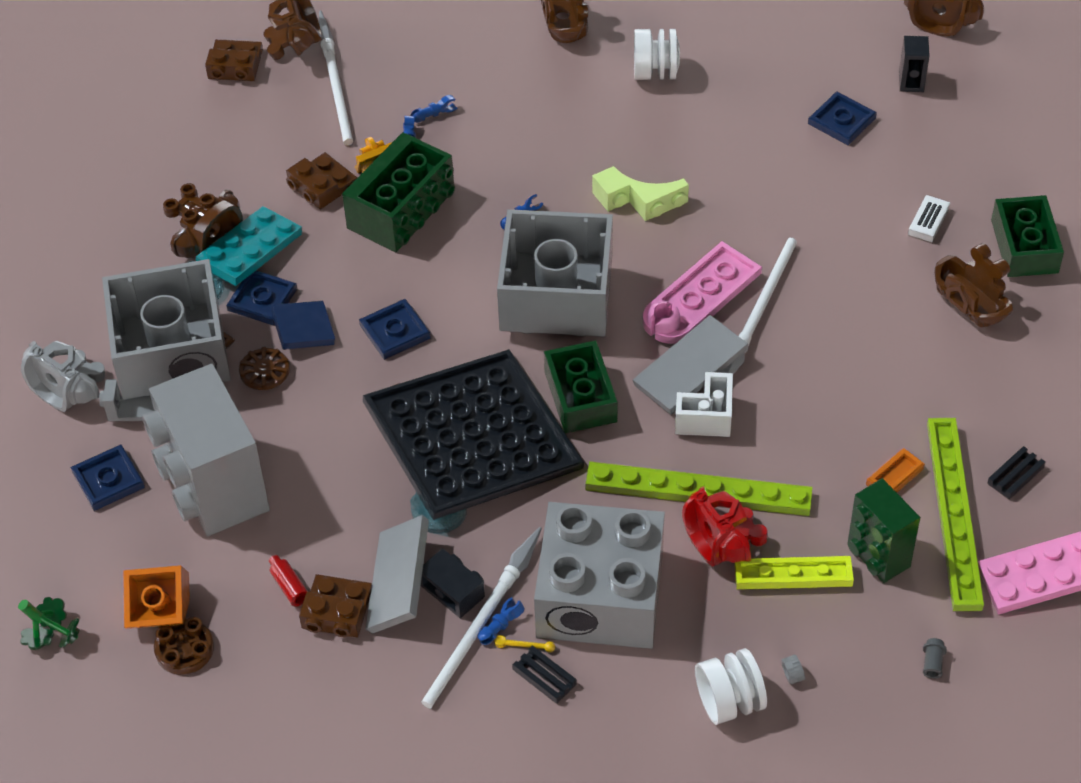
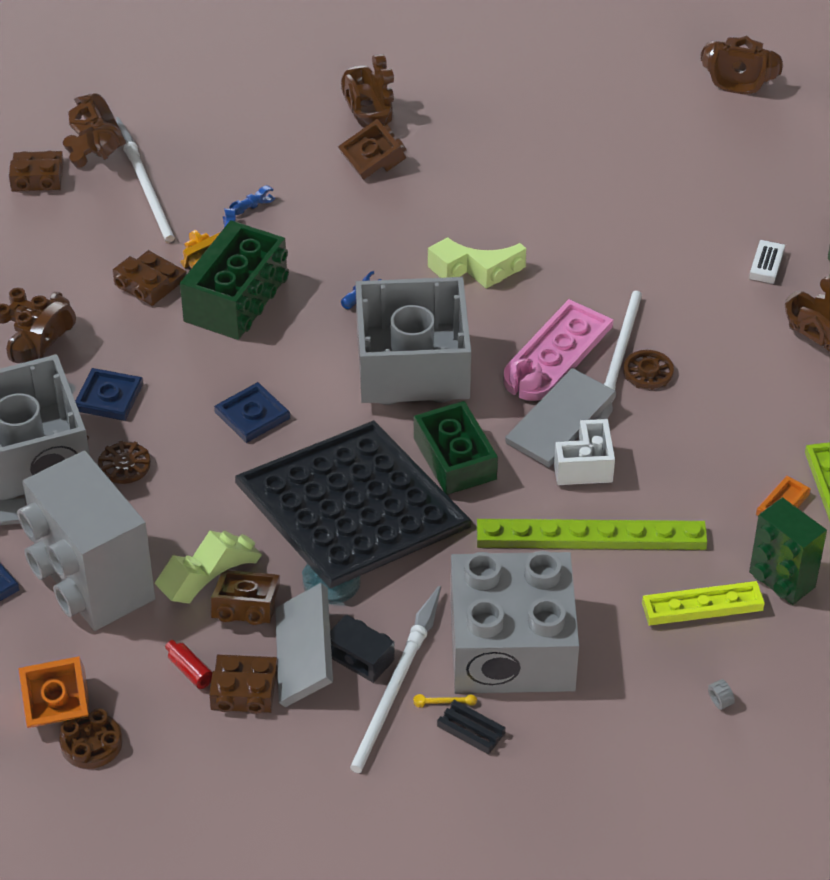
camera: 10 degrees left, 5 degrees down
(250, 245) = (90, 343): teal plate -> none
(303, 325) = (157, 416): dark blue tile -> none
(332, 472) = (217, 553): none -> yellowish green arch
(352, 518) = (245, 597): none -> reddish brown plate
(500, 621) = (416, 680): blue piece -> none
(560, 66) = (373, 149): none -> reddish brown plate
(655, 54) = (468, 130): white wheel -> none
(722, 536) = (620, 573): red piece -> none
(731, 686) = (665, 714): white wheel -> none
(788, 321) = (648, 369): none -> reddish brown wheel
(842, 118) = (662, 176): dark blue tile -> none
(914, 63) = (725, 119): black brick -> none

